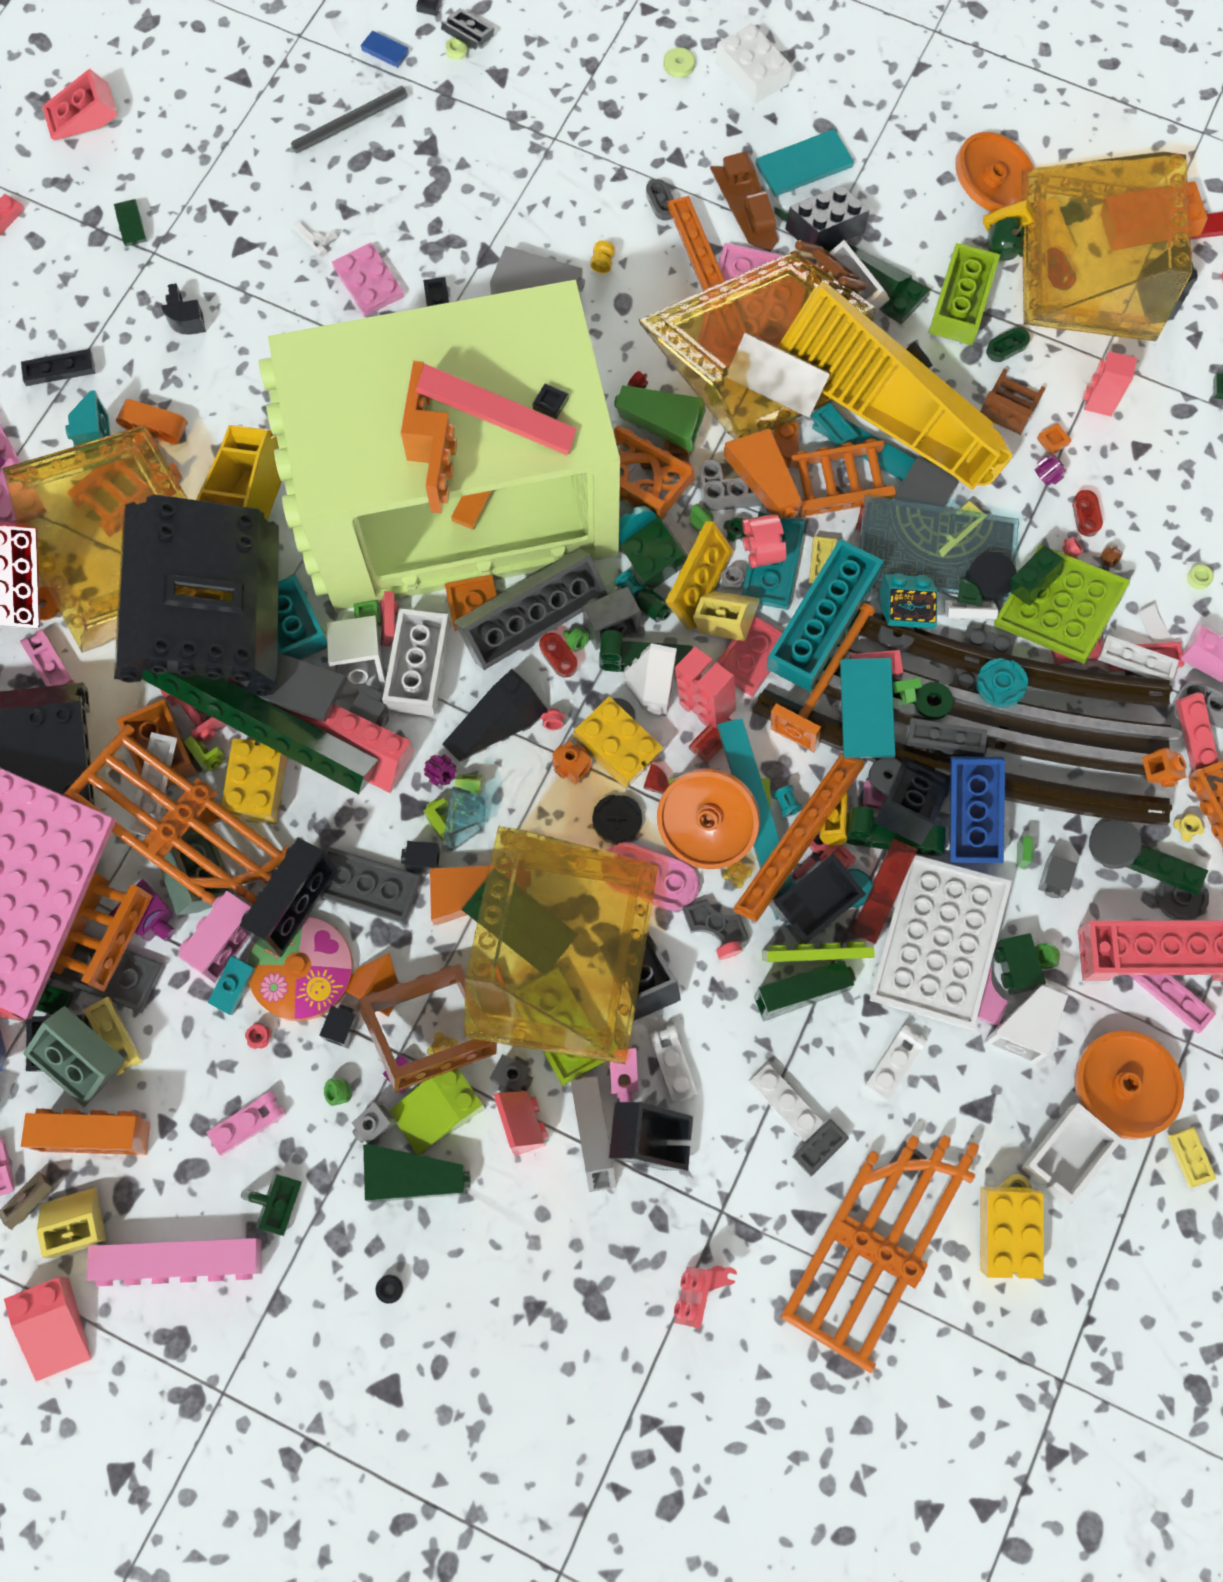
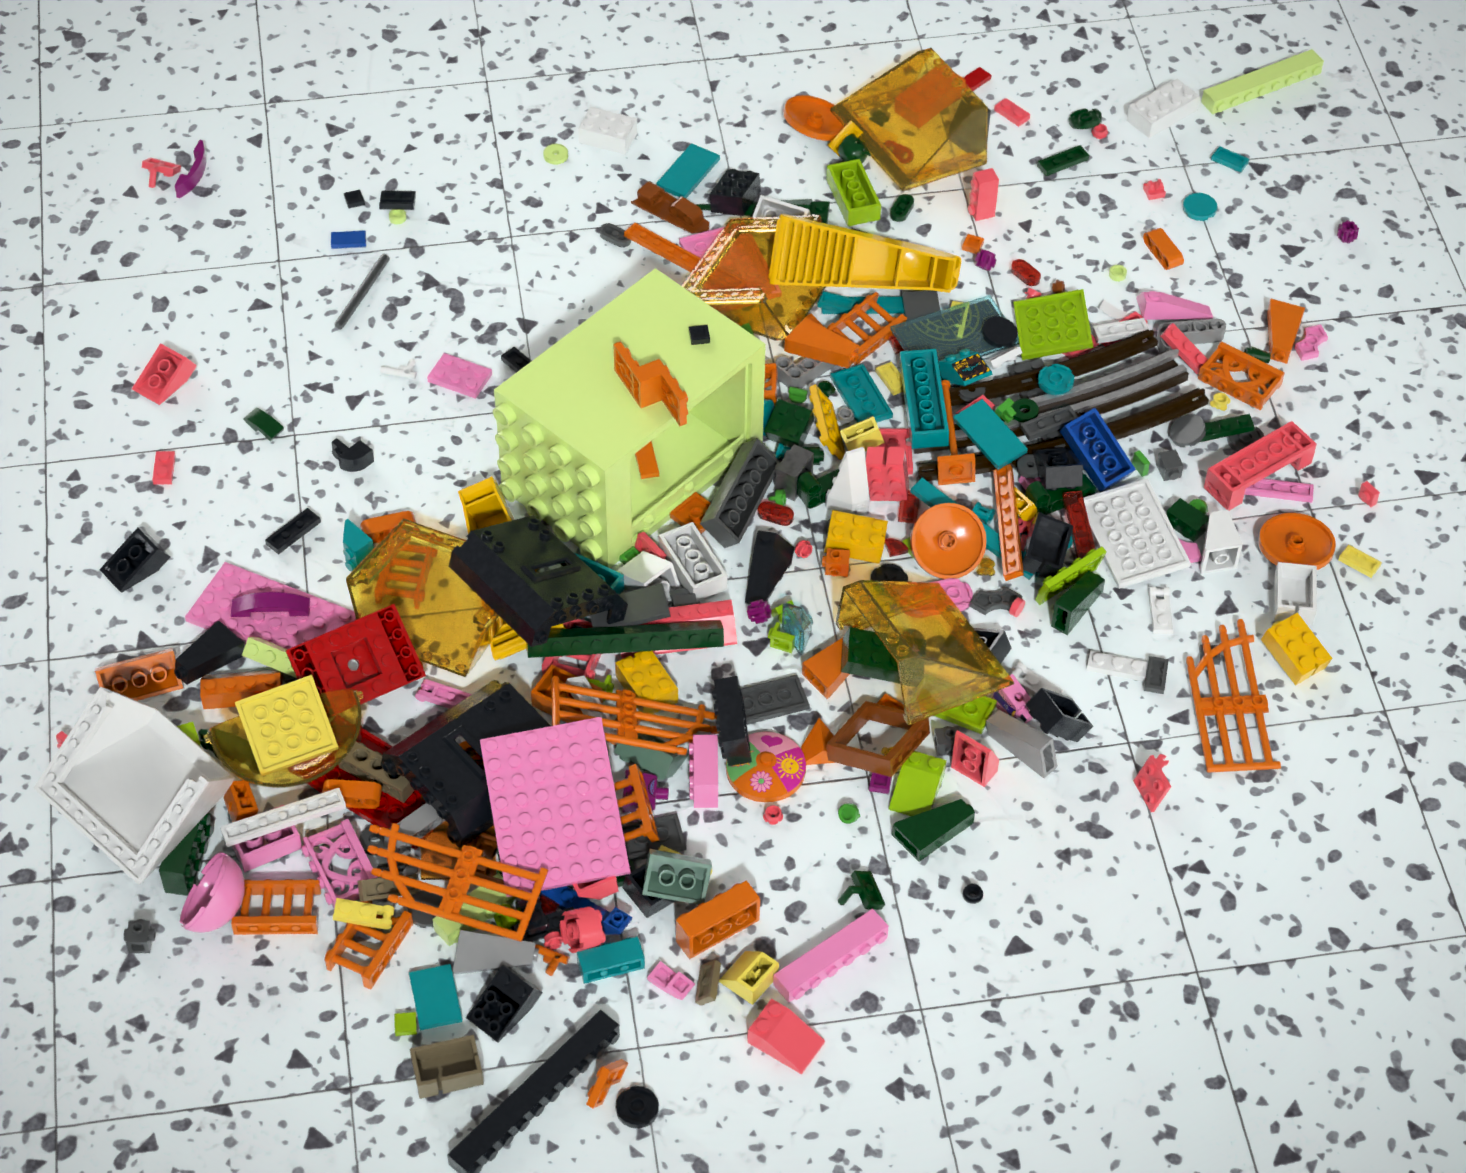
camera: 35 degrees left, 20 degrees down
(231, 985) = (732, 797): teal plate -> none
(245, 1124) = (807, 865): bright pink plate -> none
(339, 1025) = (820, 779): black brick -> none
(382, 1123) = (887, 806): light grey brick -> none
(420, 856) = (789, 663): black brick -> none
(495, 409) = (679, 348): coral tile -> none
(526, 270) = (565, 317): light grey slope -> none
(602, 259) = (607, 285): yellow wheel -> none
(764, 540) = (852, 380): coral brick -> none
(777, 374) = (787, 286): tile -> none
(828, 263) = (762, 211): dark orange plate -> none
(969, 592) = (994, 347): dark green tile -> none
(1007, 408) = (939, 239): dark orange plate -> none
(1037, 575) = (1027, 315): dark green brick -> none
(1164, 767) = (1184, 367): orange brick -> none

